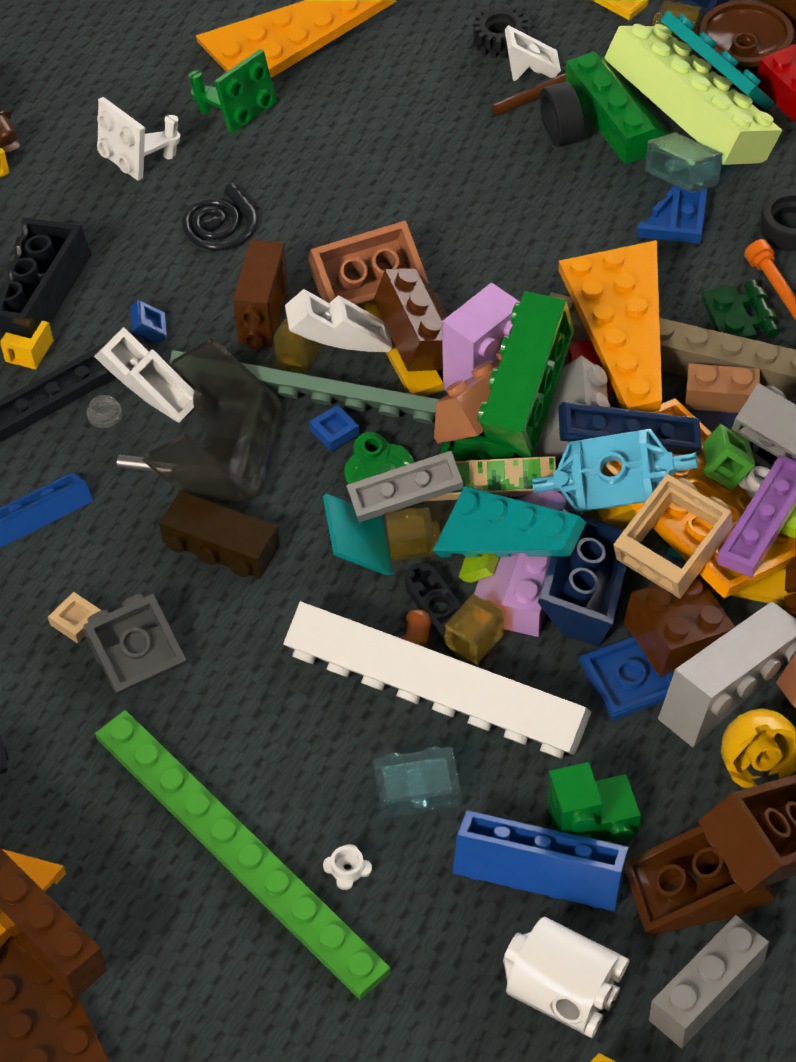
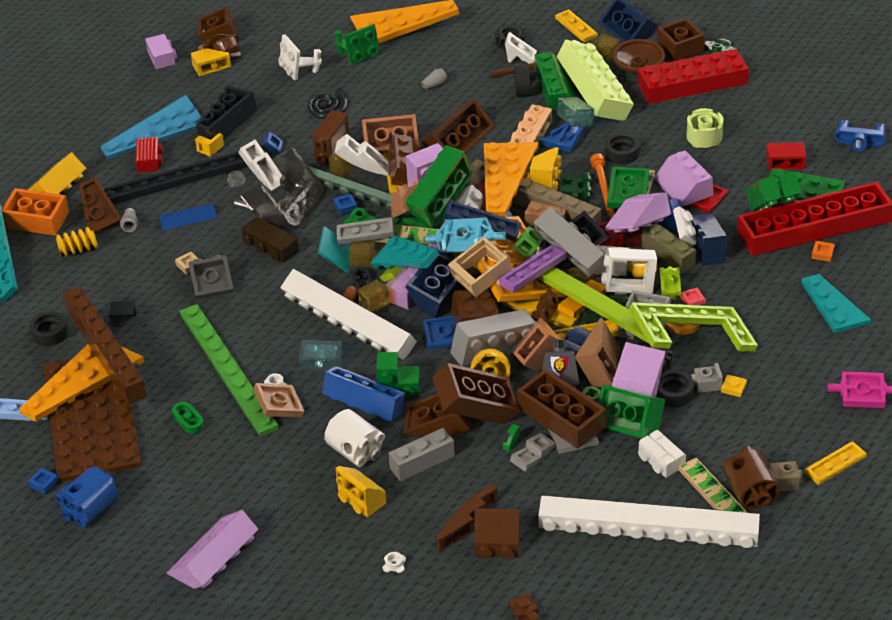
camera: 15 degrees right, 10 degrees down
(203, 990) = (191, 420): none -> green plate
(374, 911) = (278, 400): none -> medium nougat plate
(399, 136) = (434, 79): none -> light grey cone
(486, 236) = (461, 128): none -> reddish brown slope
(614, 207) = (533, 125): none -> light nougat brick
(688, 292) = (545, 168): none -> yellow slope
(723, 63) = (614, 65): teal wing -> none

